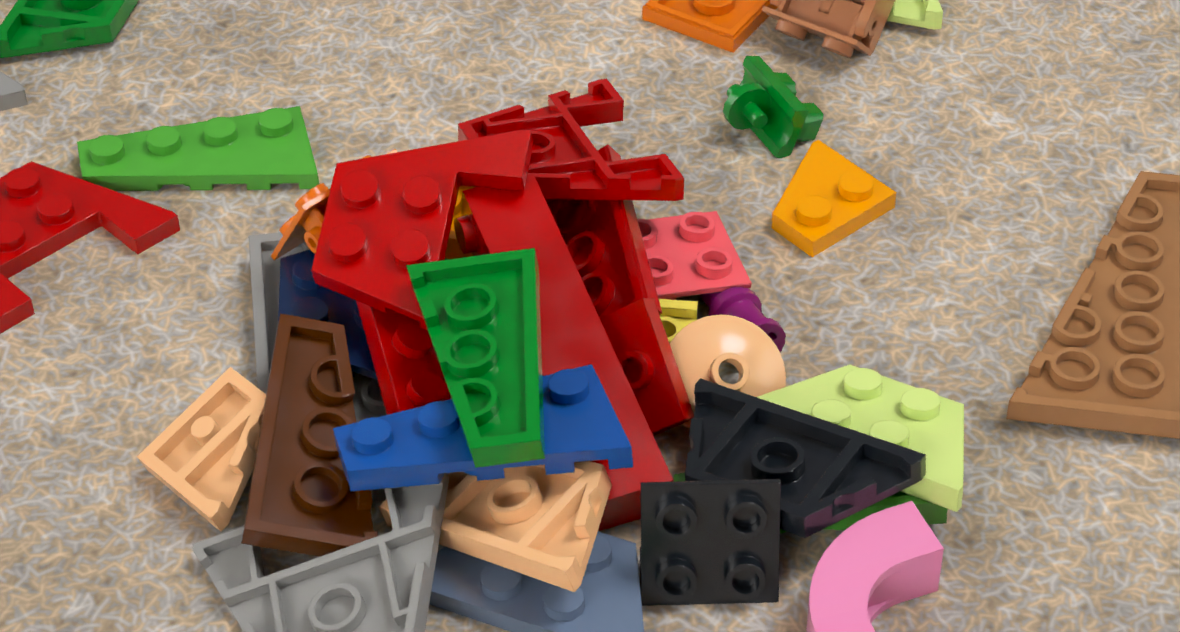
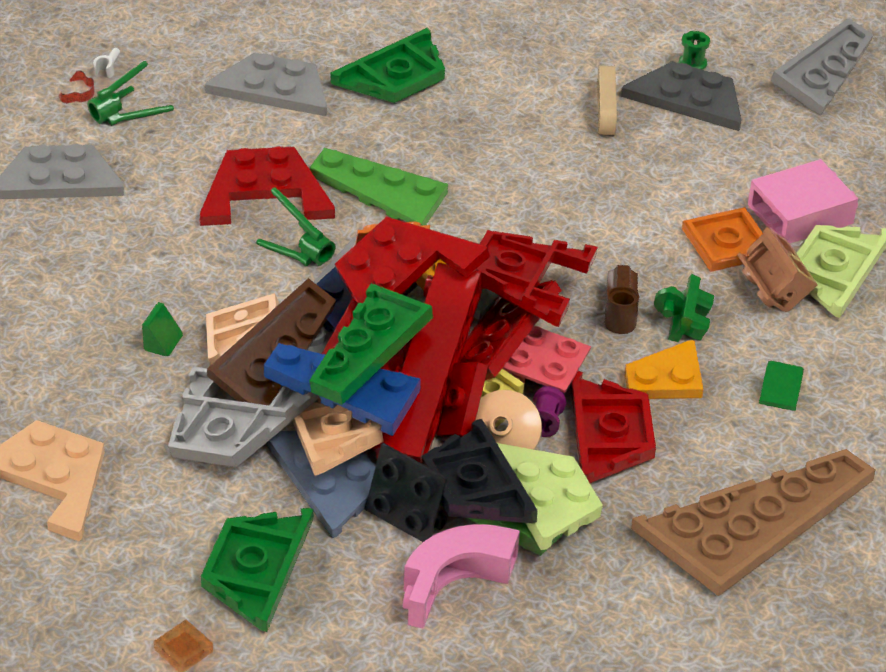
camera: 35 degrees right, 0 degrees up
(92, 522) = (160, 331): none -> green slope
(198, 274) = (313, 244): none -> green plant
(684, 135) = (621, 300): none -> reddish brown piece
(843, 300) = (611, 427): none -> red wing
(975, 139) = (781, 385): none -> green slope

